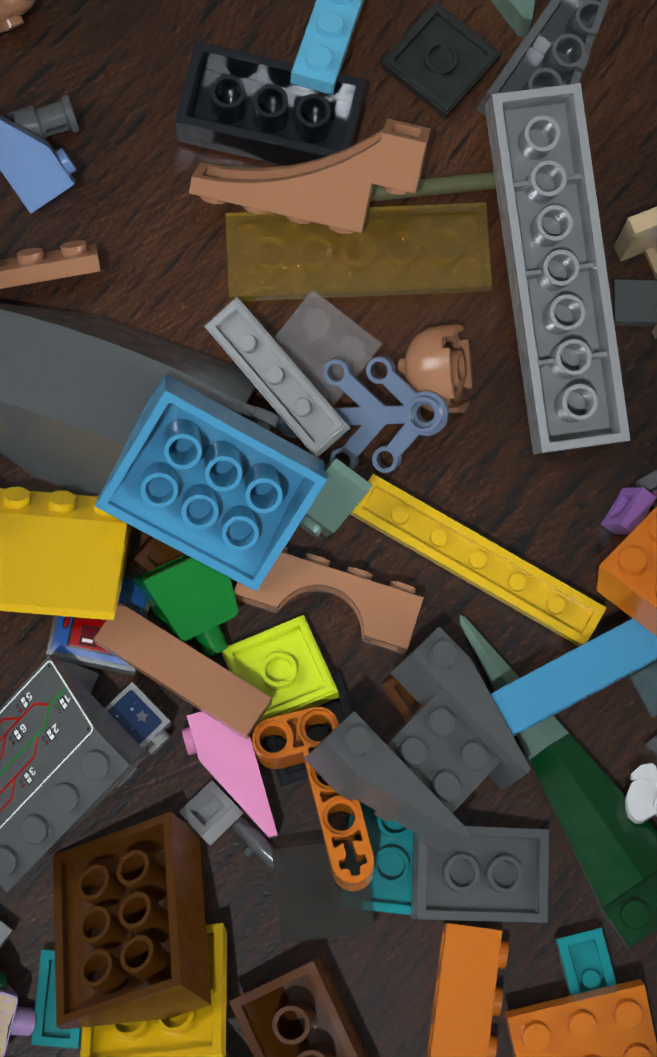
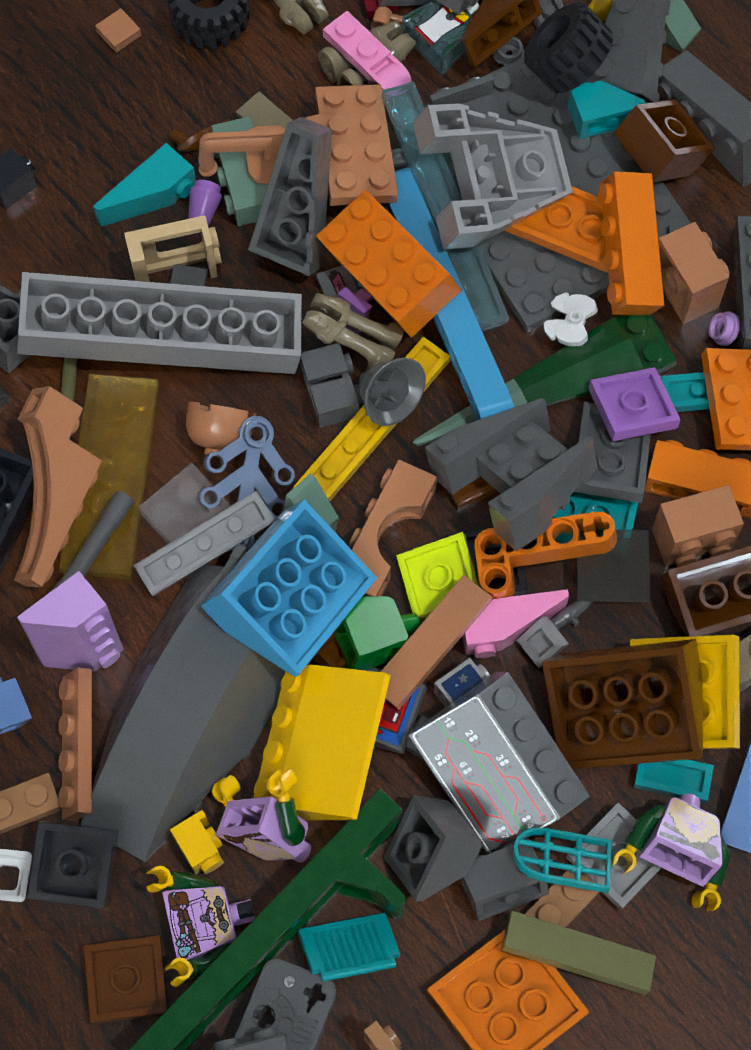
camera: 75 degrees left, 10 degrees down
(132, 236) = (72, 628): none -> lavender slope
(197, 223) = (109, 521): none -> dark grey piece
(387, 997) = (697, 526): none -> nougat brick
(511, 572) = (392, 390): none -> dark grey hat
(517, 501) = (329, 384): none -> dark grey piece
(550, 895) = (634, 404): none -> medium lavender plate
(586, 491) = (329, 324): none -> dark tan piece

